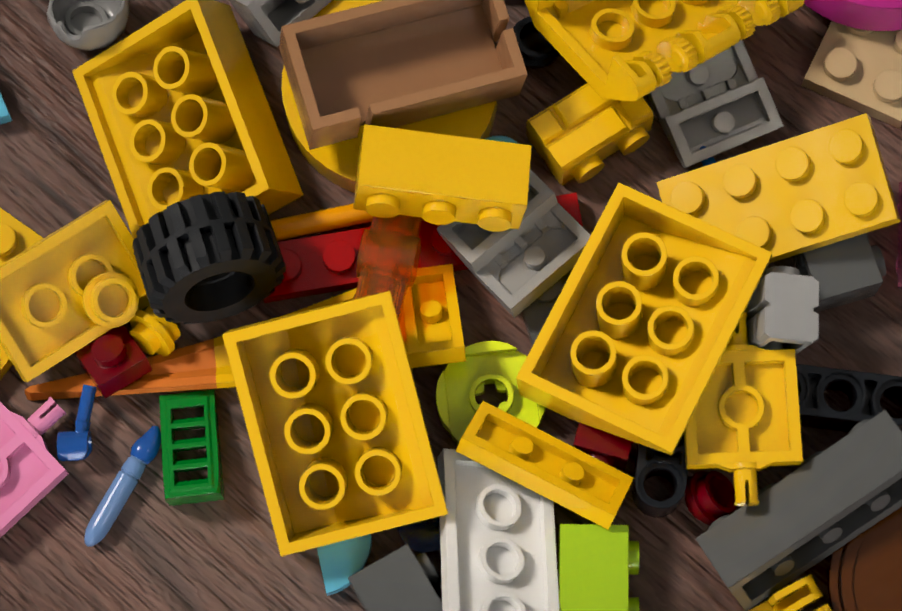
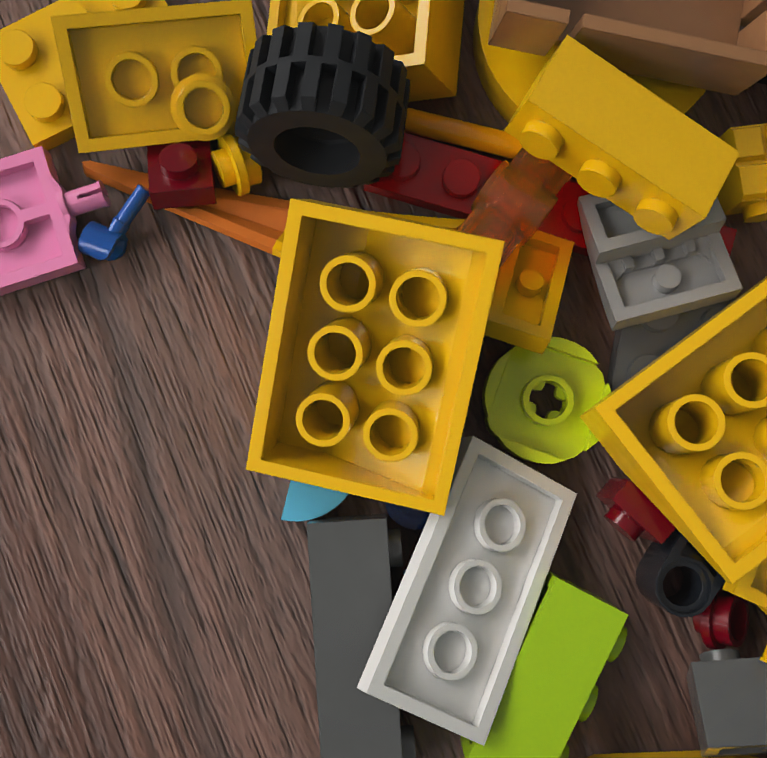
camera: 20 degrees right, 10 degrees up
(121, 488) = (166, 284): medium blue piece -> none
(193, 490) = (188, 312): green slope -> none
(544, 464) = (572, 508): yellow plate -> none

